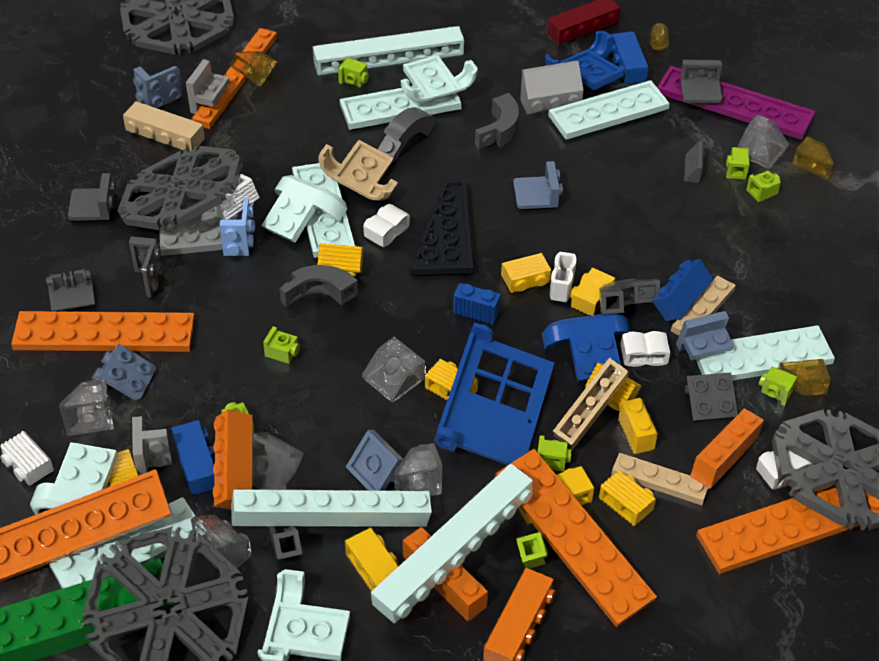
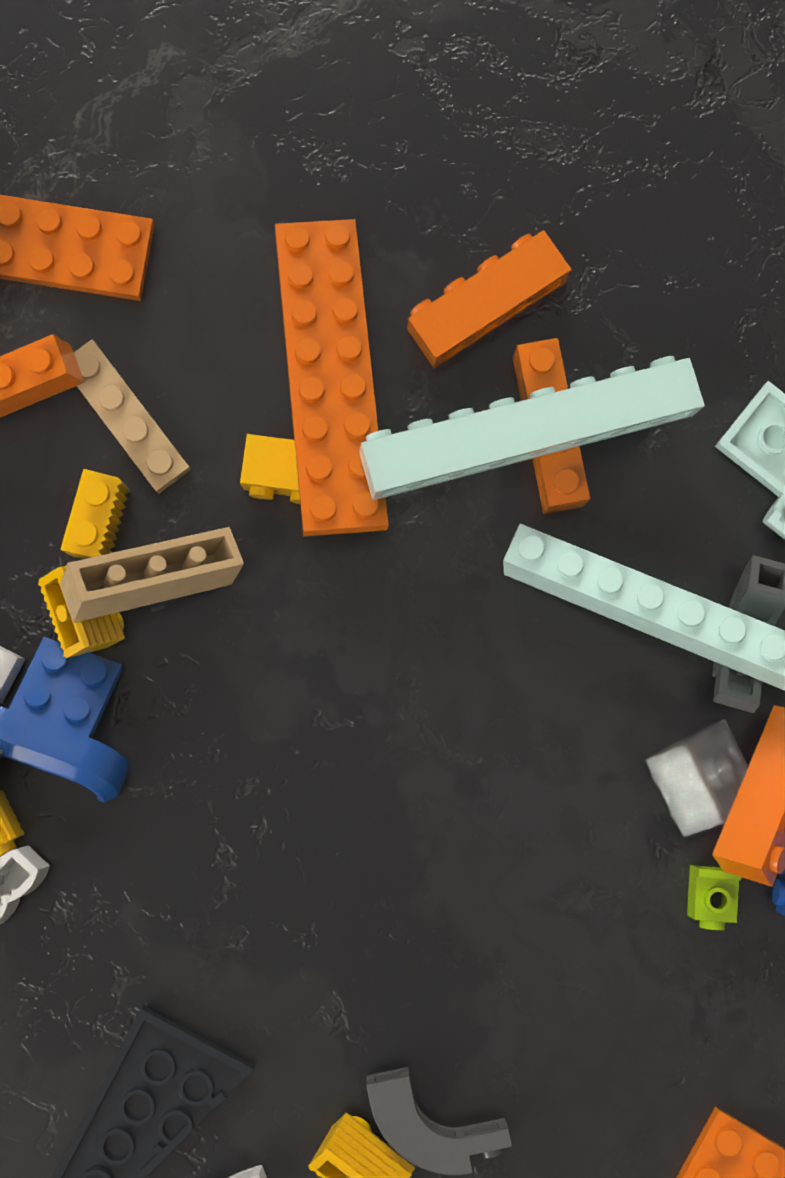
camera: 155 degrees left, 35 degrees up
(281, 345) = (577, 1032): lime brick -> none
(370, 557) = (638, 495): yellow brick -> none
(374, 462) = (541, 673): sand blue bracket -> none
(394, 369) = (409, 854): clear slope -> none
(420, 471) = (493, 608): clear slope -> none
(441, 379) = (330, 774): yellow brick -> none
(476, 303) = (185, 921): blue brick -> none
(486, 424) = (324, 647): blue door -> none
(526, 272) = (55, 943): yellow brick -> none
(532, 550) = (406, 384): lime brick -> none
(554, 453) = (260, 543): lime brick -> none
(627, 497) = (200, 403): yellow brick -> none

